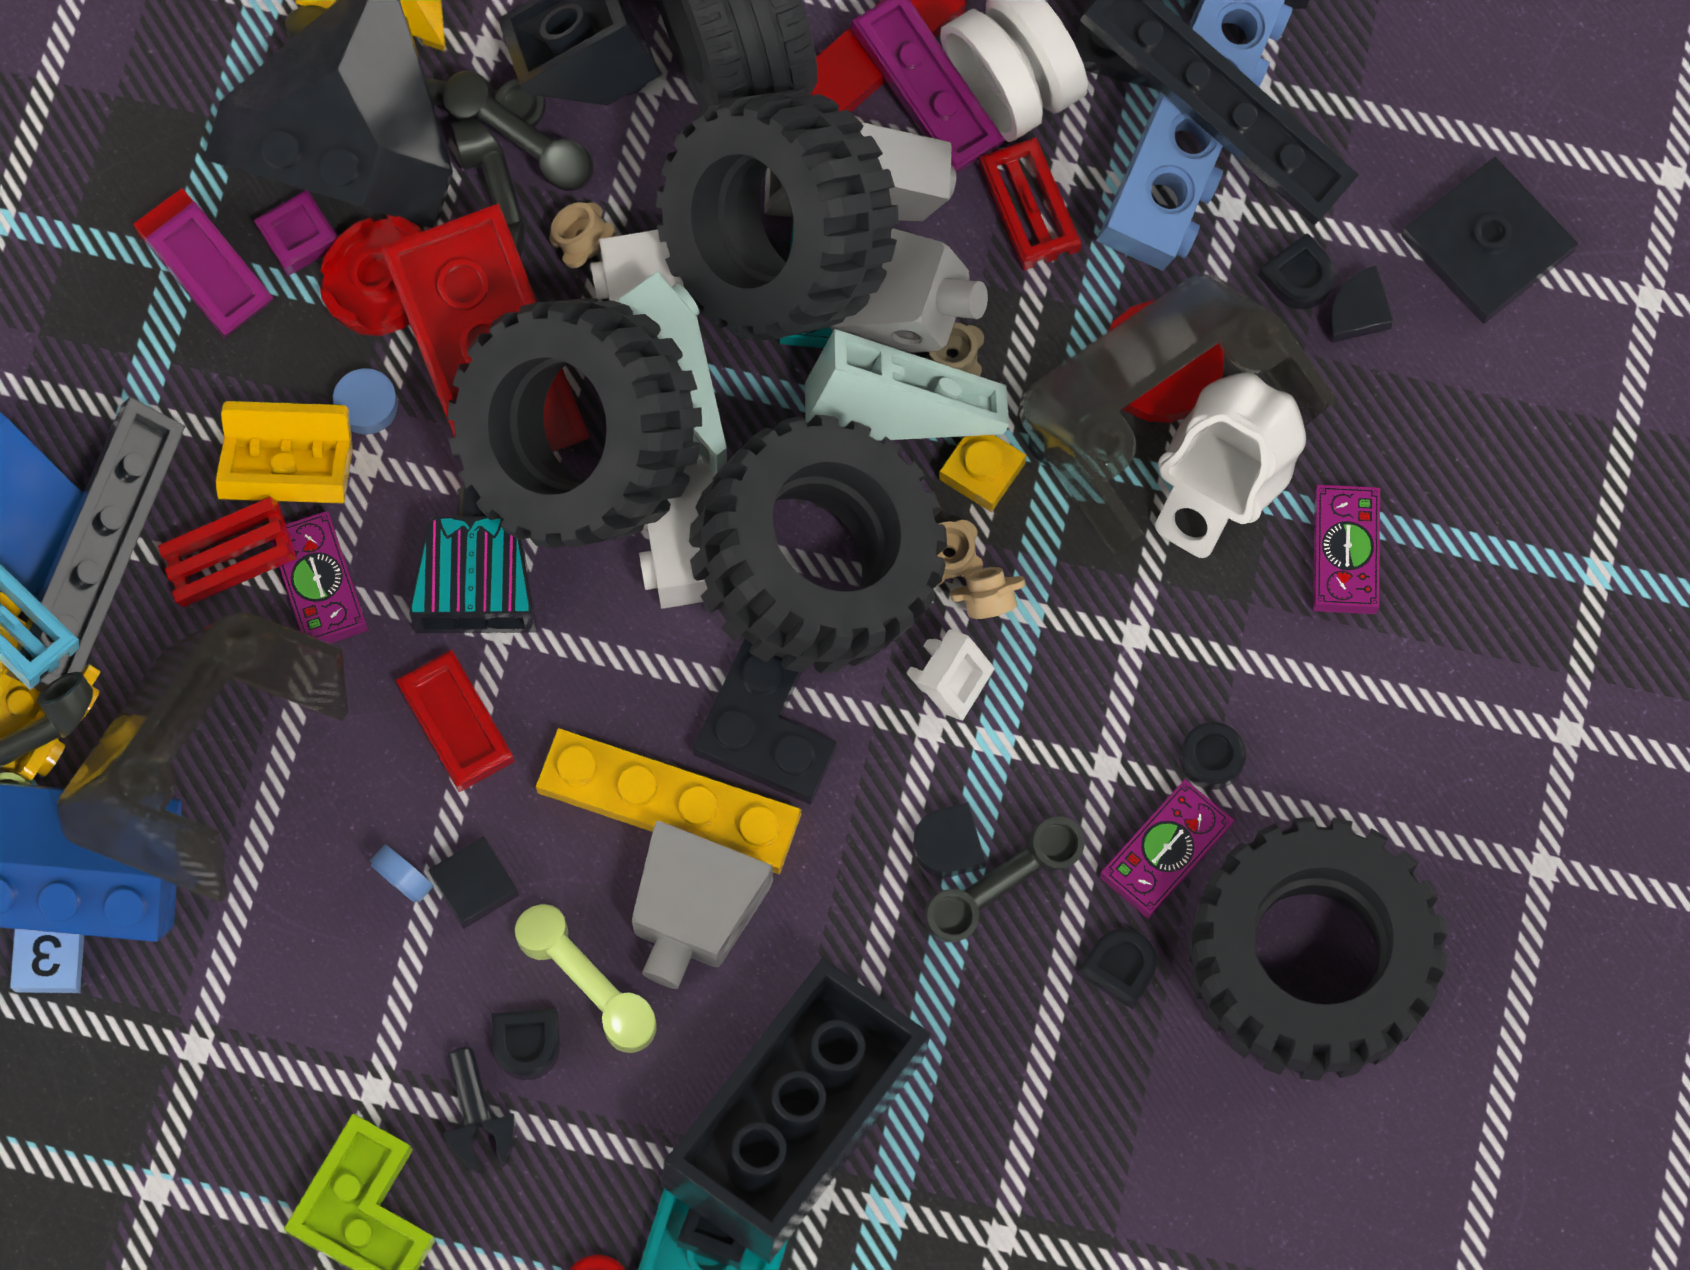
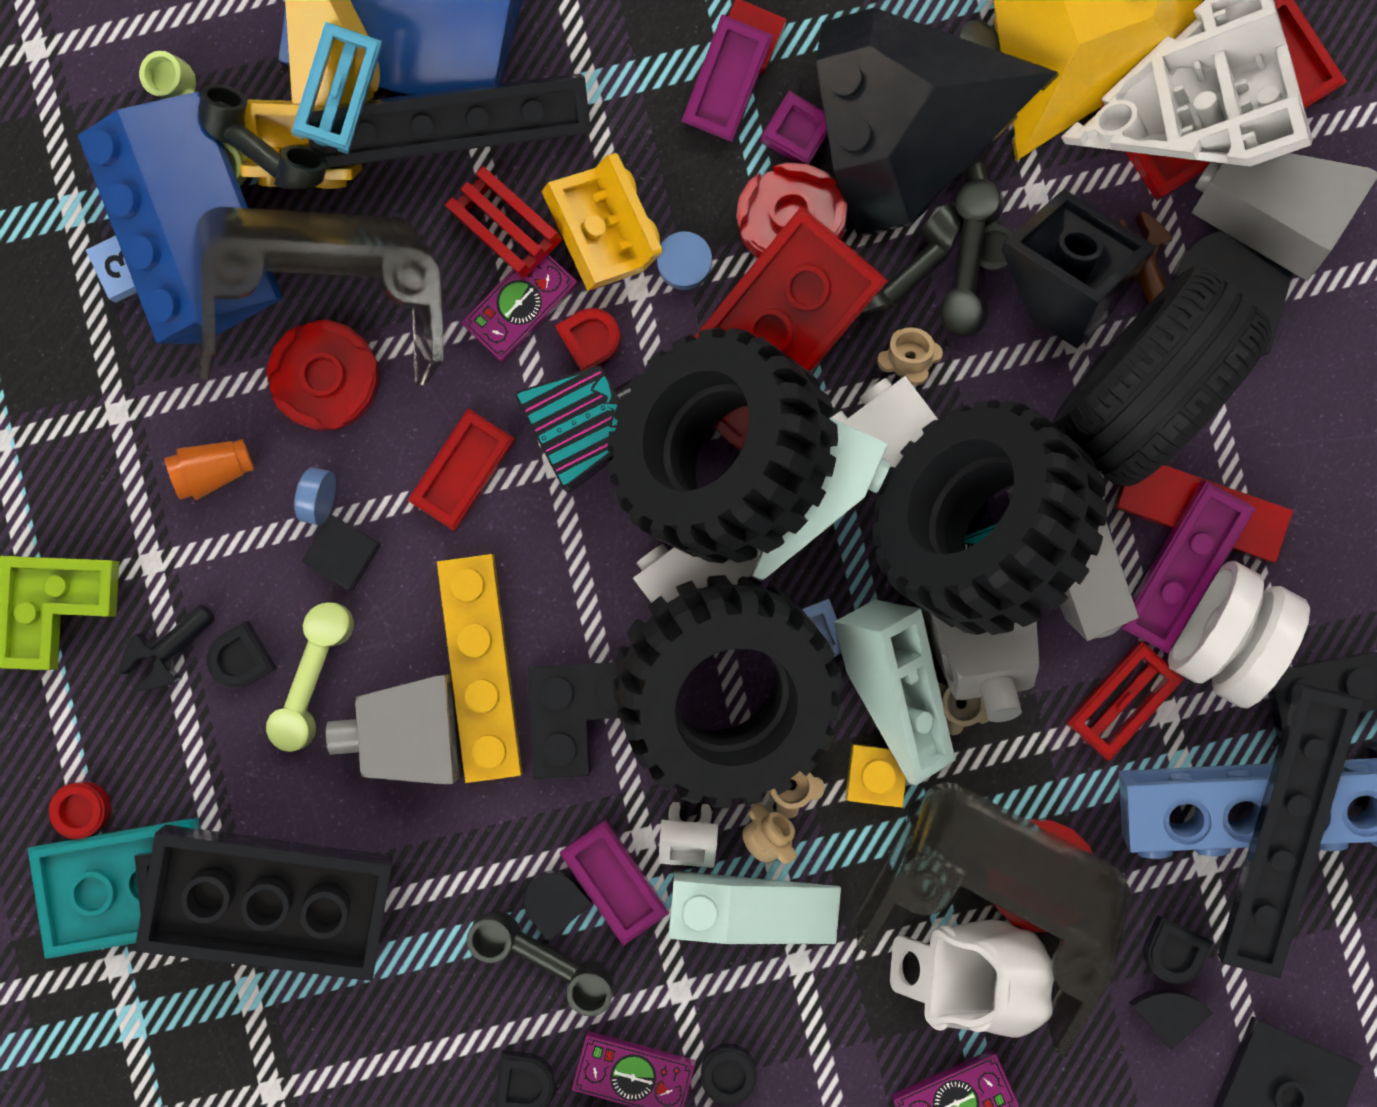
camera: 65 degrees right, 15 degrees up
(279, 813) = (323, 375): none -> red tile
(310, 972) = (207, 467): none -> orange cone
(390, 529) = (590, 337): none -> red tile
(959, 772) = (614, 882): none -> magenta tile
(1052, 650) = (752, 910): none -> light aqua slope

